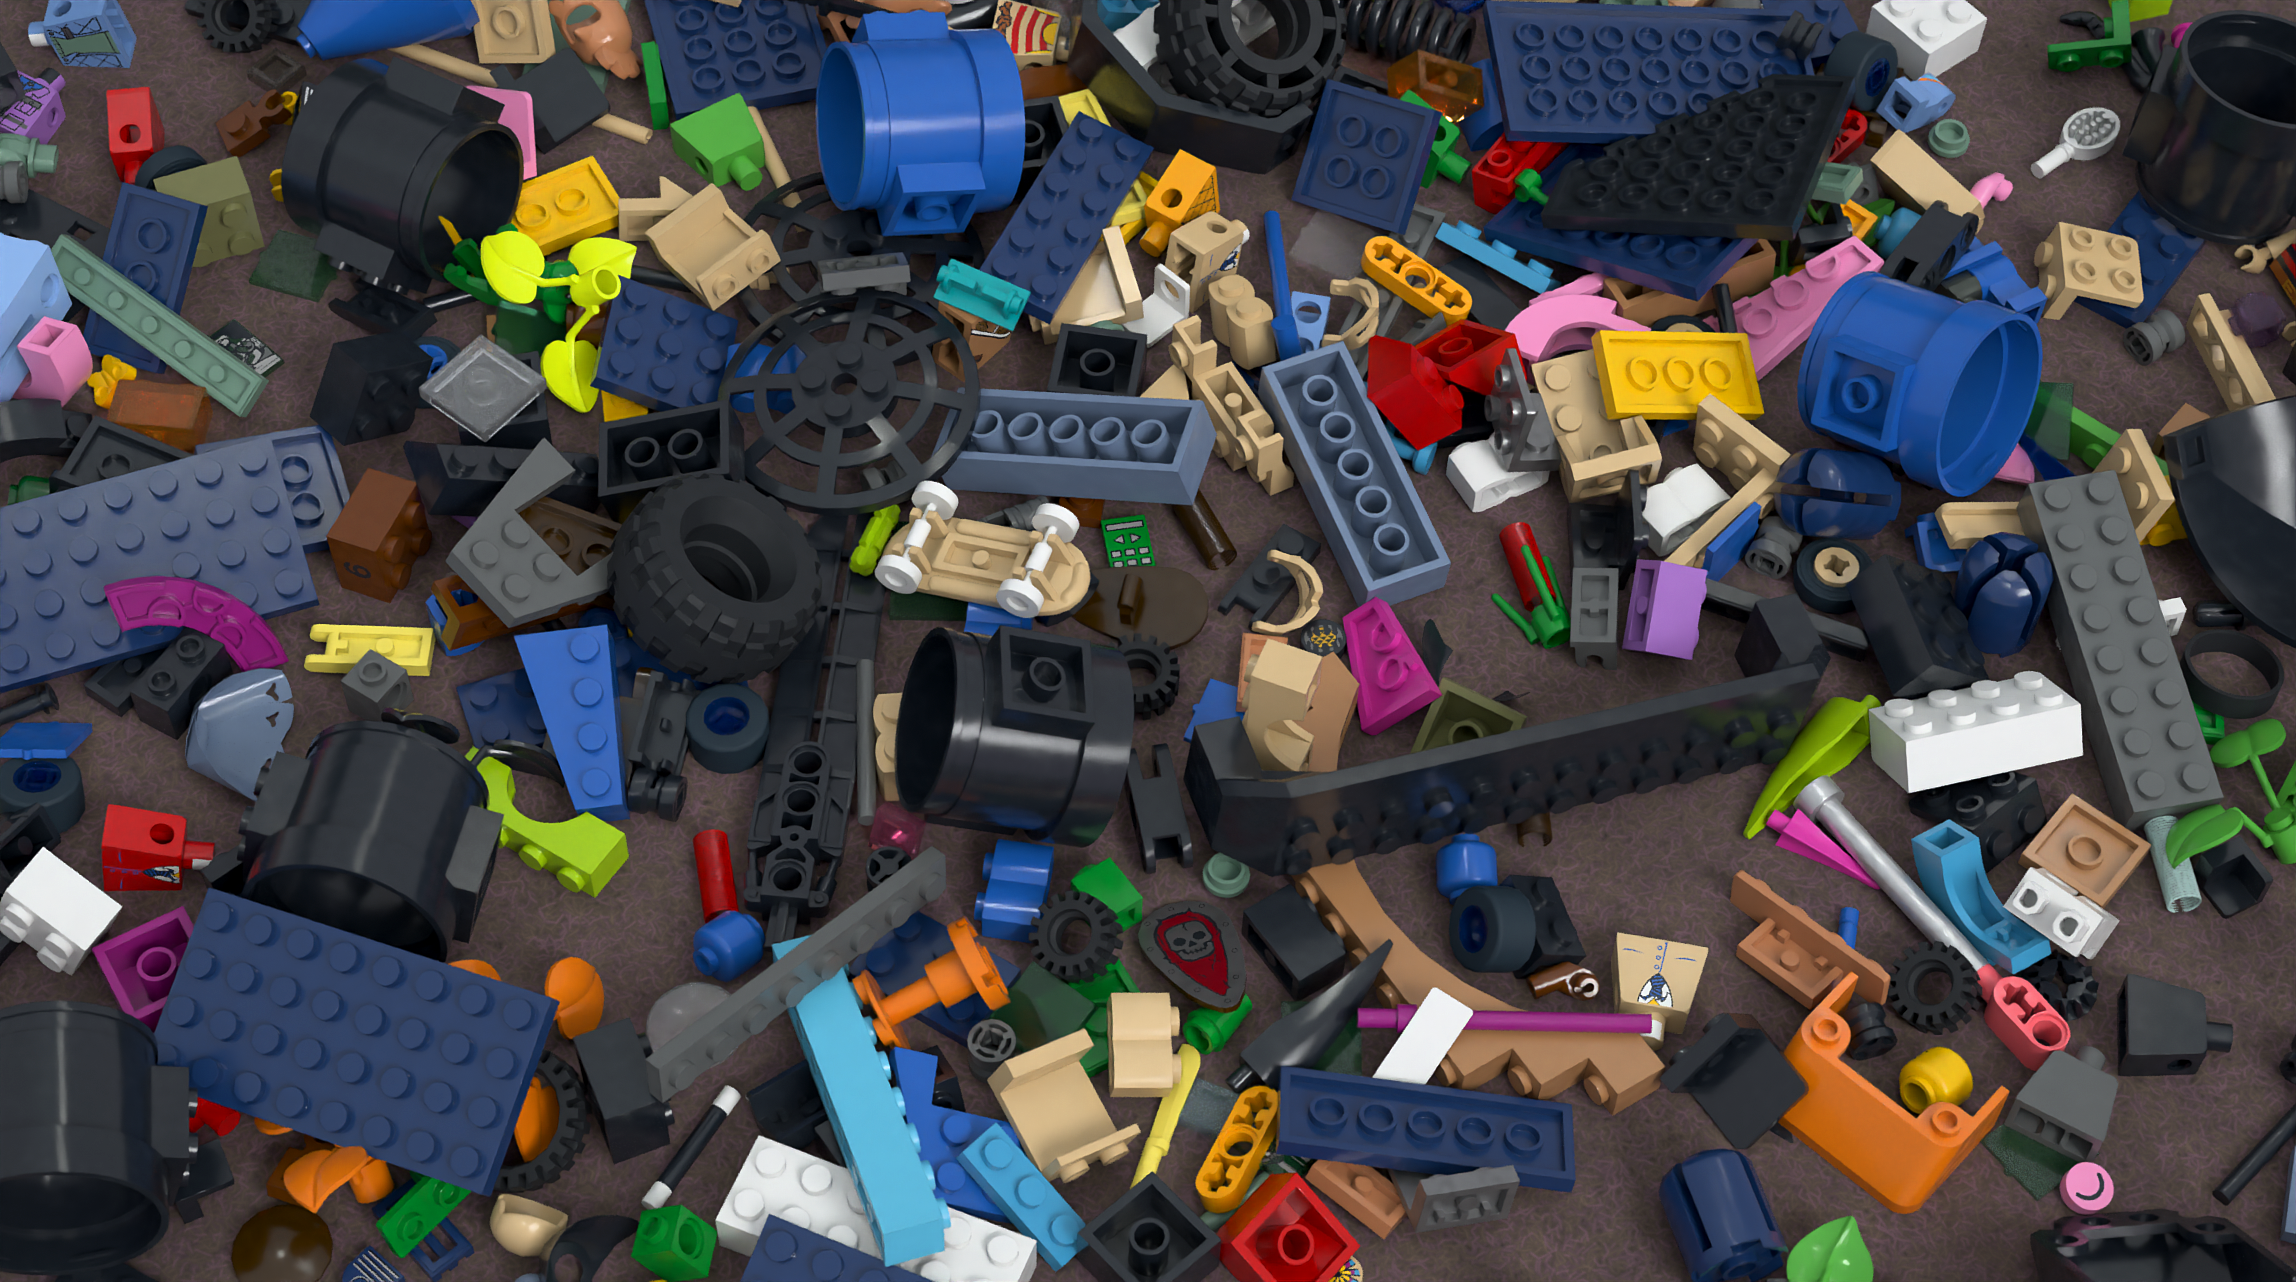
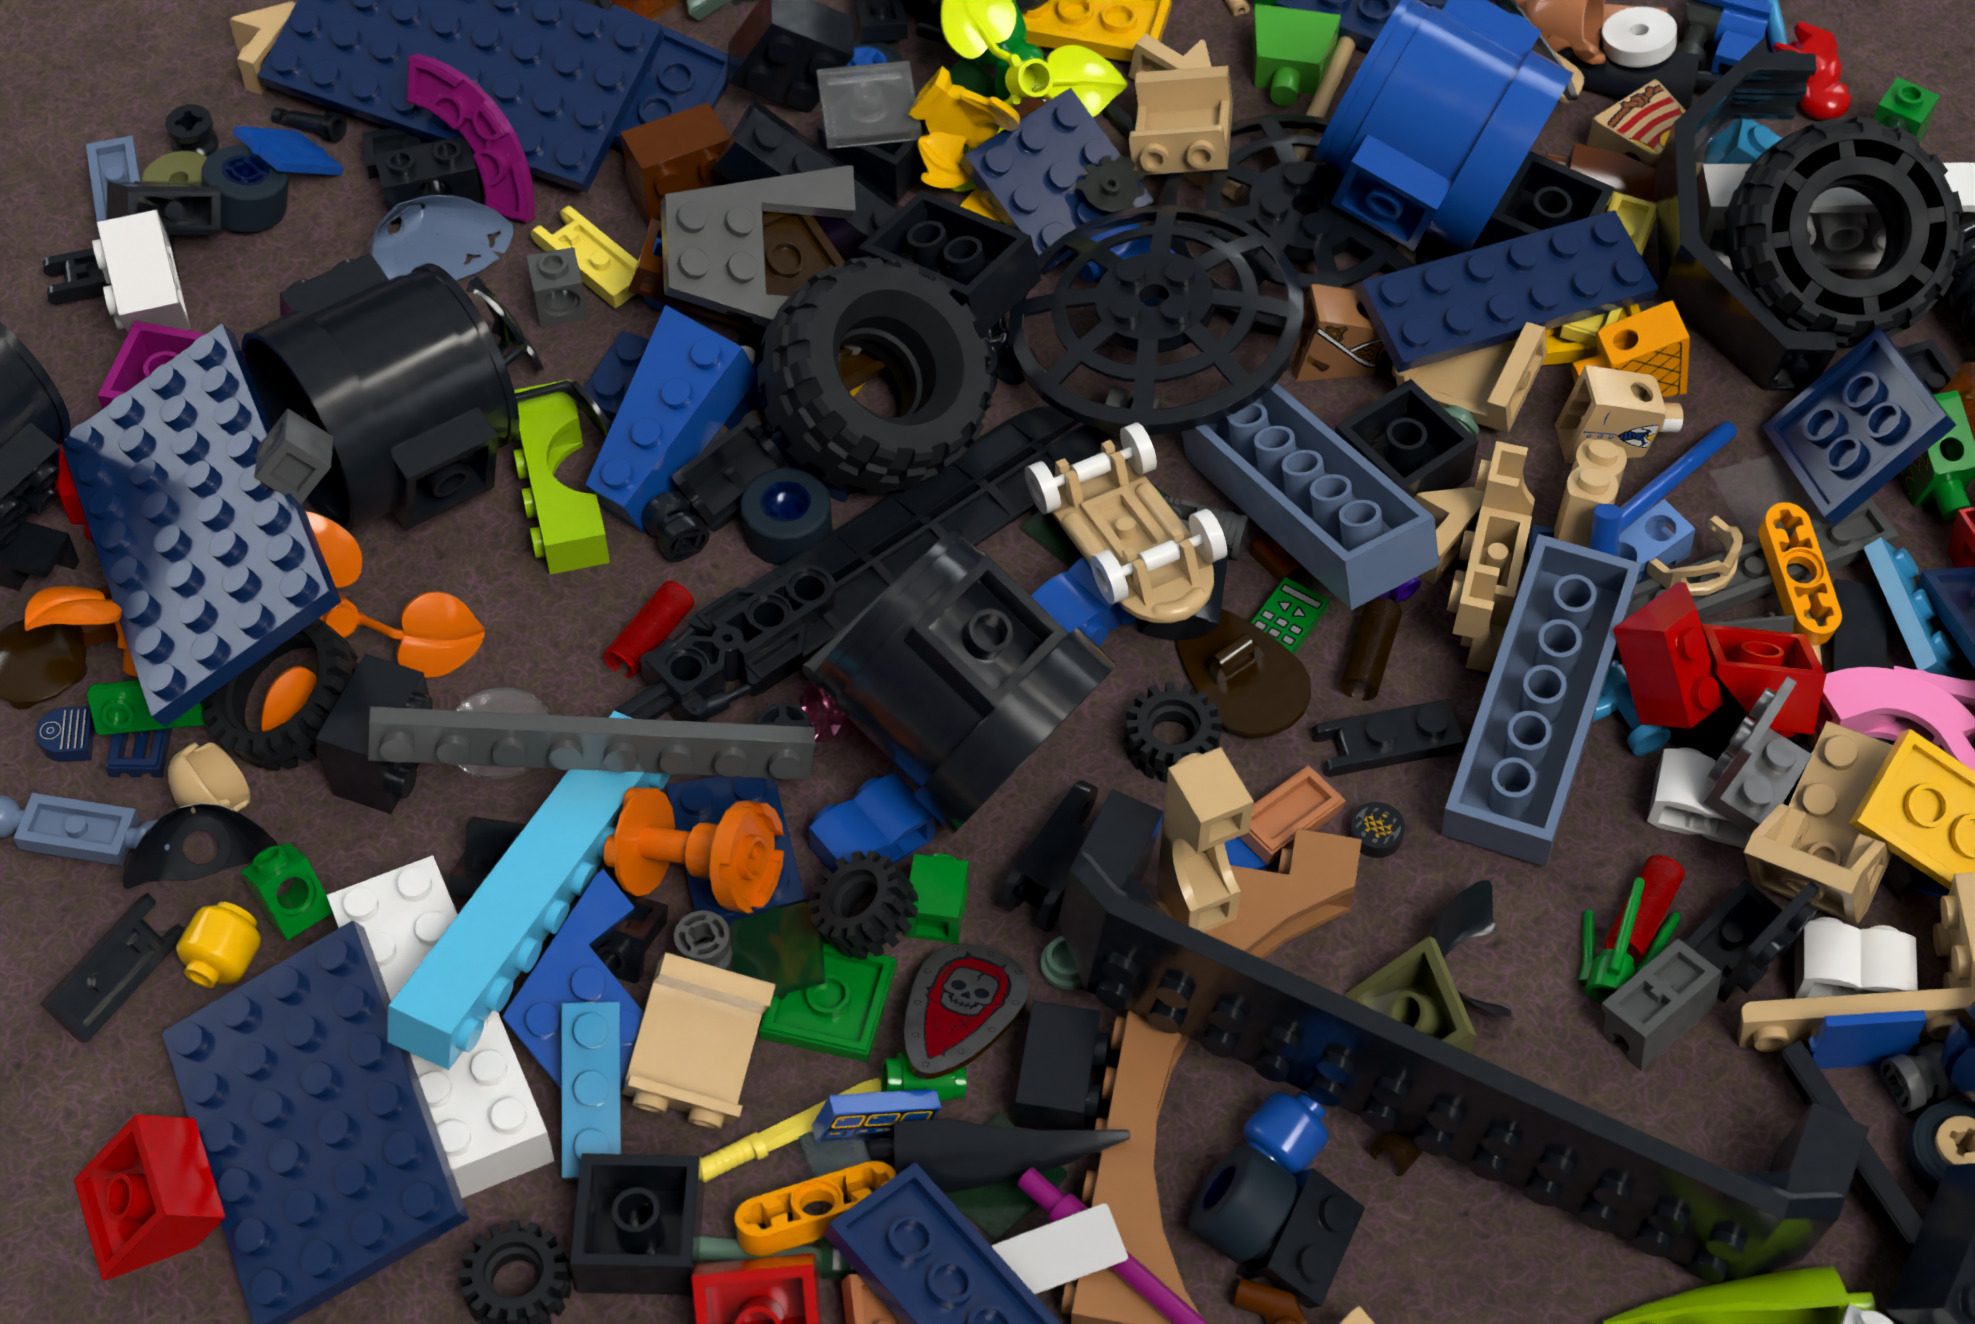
camera: 45 degrees right, 0 degrees up
(149, 850) = (254, 273): red torso -> none
(407, 931) = (294, 456): none -> dark grey brick
(563, 356) = (953, 119): none -> yellow animal
(691, 1148) = (395, 831): black bar -> none
(712, 327) = (1112, 184): none -> pearl dark grey piece
(728, 945) = (593, 685): blue head -> none
(874, 540) = (1072, 448): lime axle -> none
(875, 272) = (1283, 224): dark grey bracket -> none
(981, 294) = (1349, 299): teal hinge -> none
(1141, 1045) = (823, 1043): tan brick -> none
(1162, 308) = (1539, 436): white bracket -> none
(1220, 1061) = (872, 1114): none -> tile
(1308, 600) = (1405, 775): tan helmet -> none
(1386, 667) = (1402, 893): dark pink wing -> none
(1665, 609) = (1729, 1046): medium lavender brick -> none

